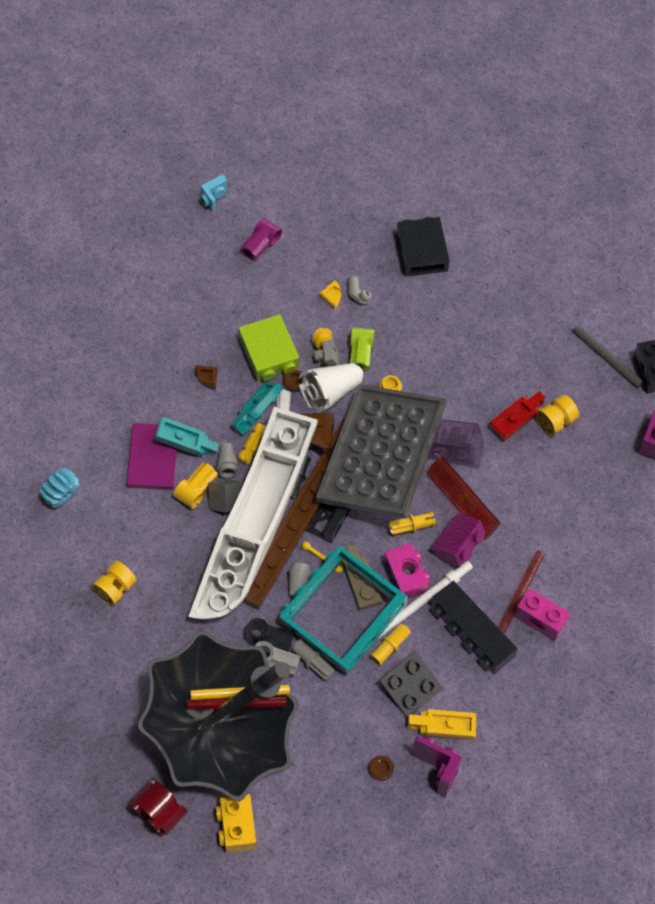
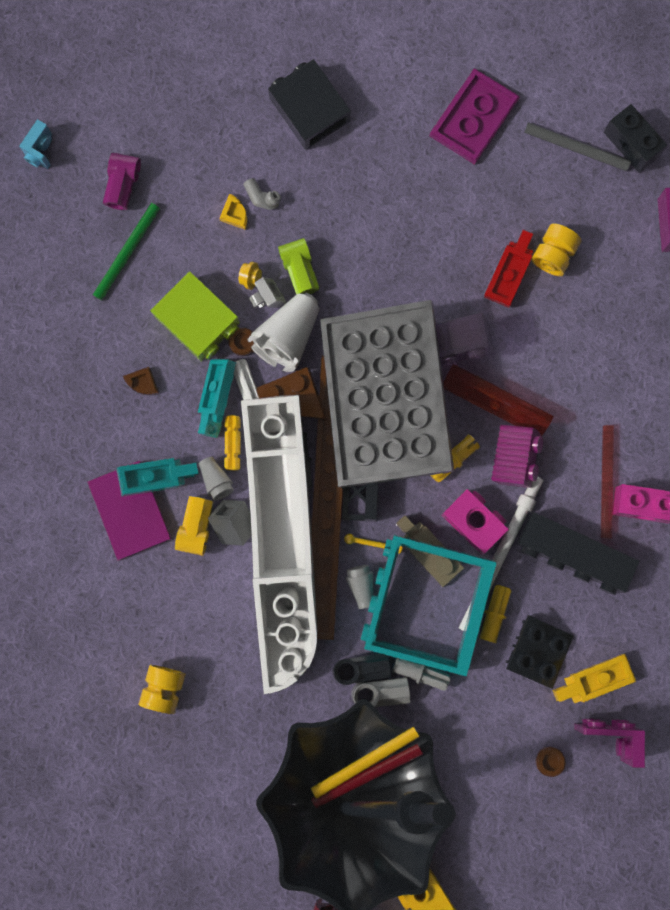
camera: 15 degrees left, 20 degrees up
(59, 487) = (44, 605): medium azure gear -> none
(240, 287) = (126, 251): none -> green bar
(391, 382) = (353, 299): yellow plate -> none
(540, 305) = (474, 116): none -> magenta tile

